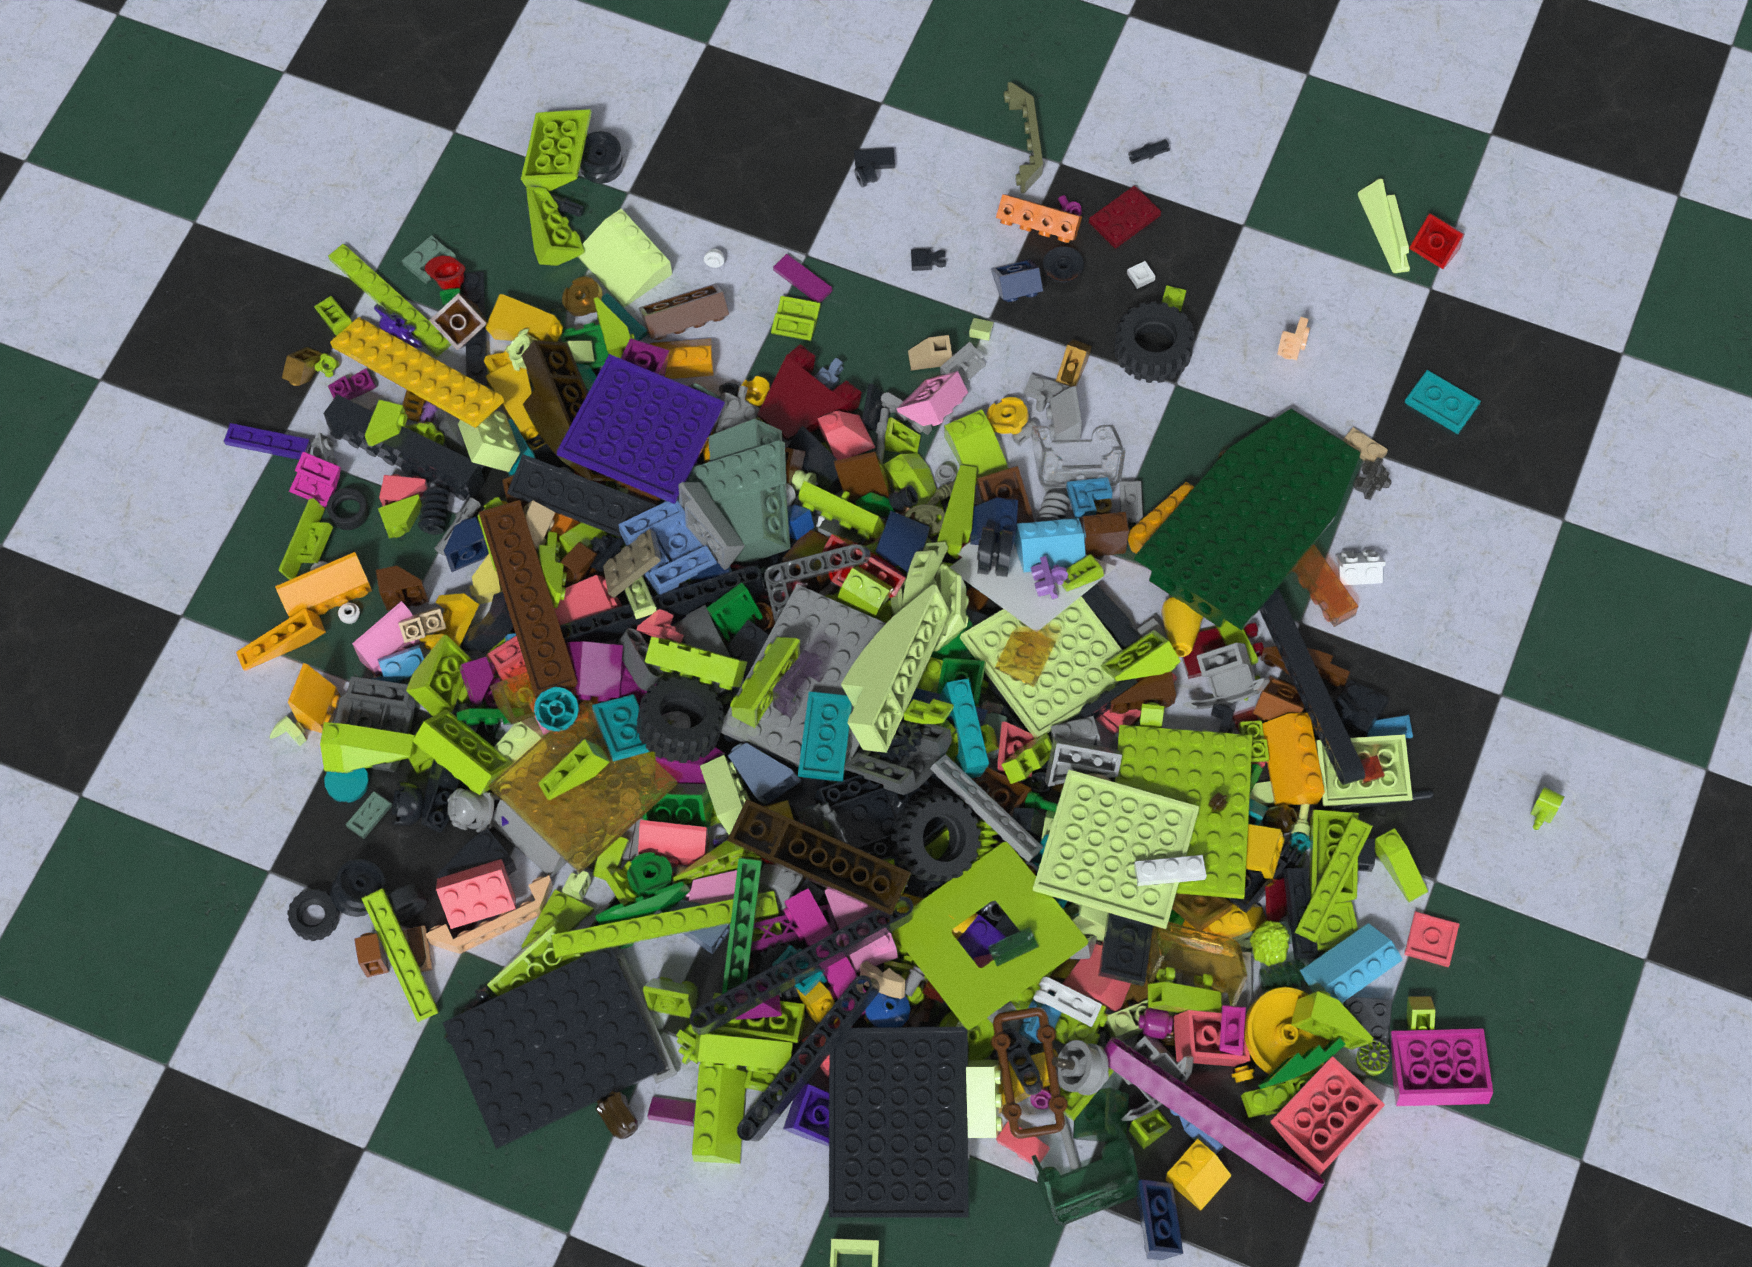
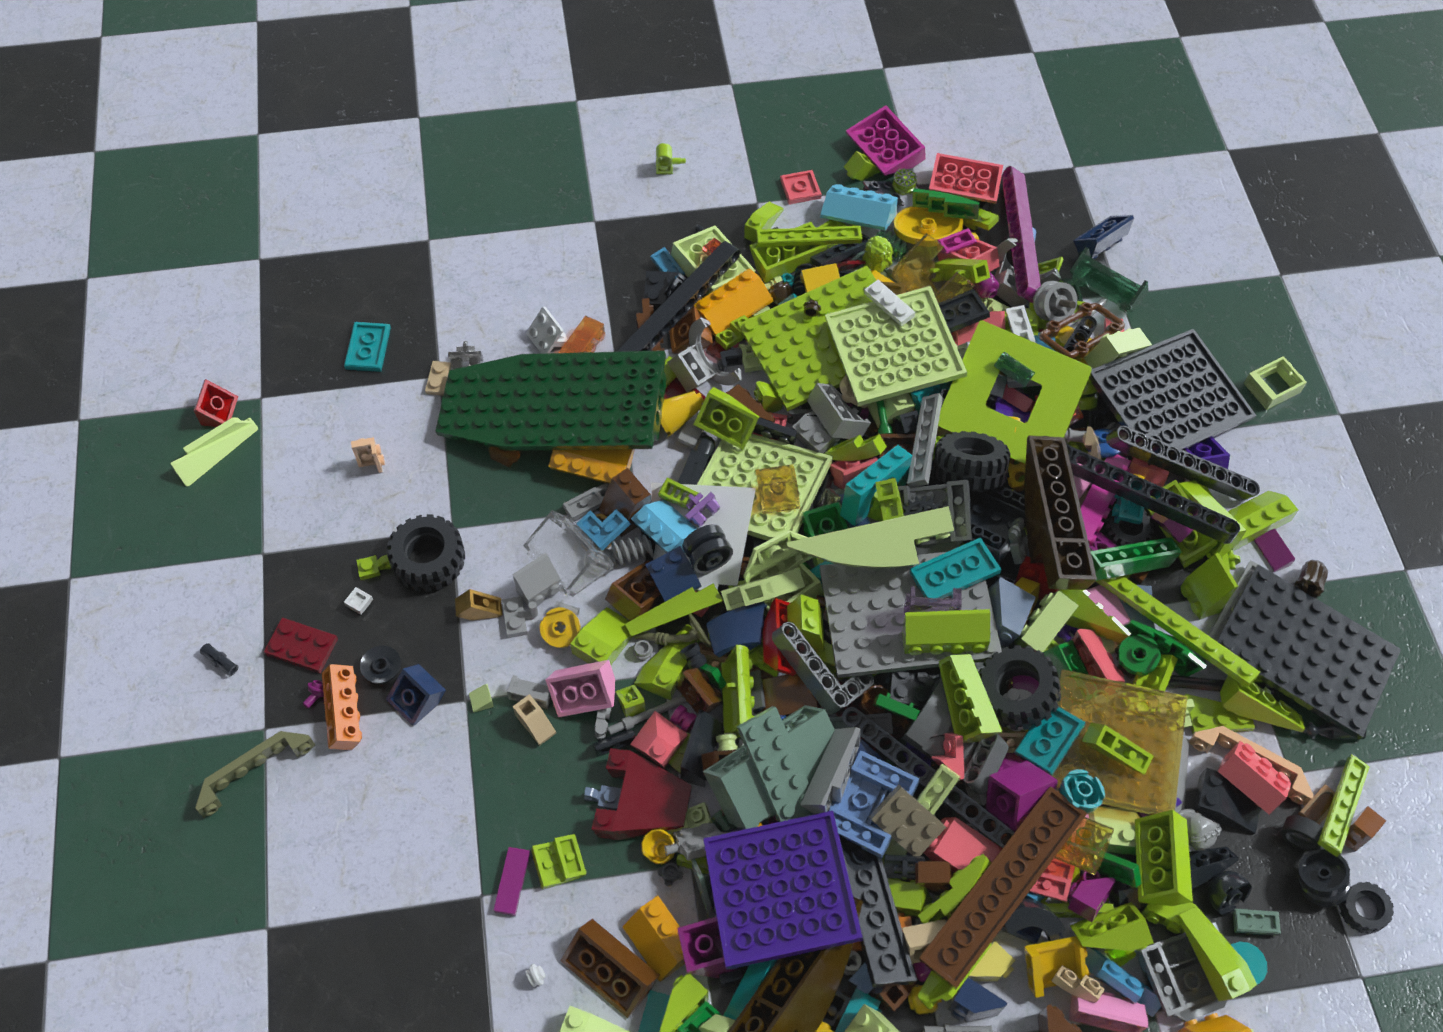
camera: 125 degrees left, 5 degrees down
(865, 175) = (366, 887): black wheel -> none
(878, 158) = (341, 894): black tile -> none
(923, 259) = (433, 786): black plate -> none
(1198, 1174) = (1053, 238): yellow slope -> none
(1329, 1020) = (909, 200): lime slope -> none

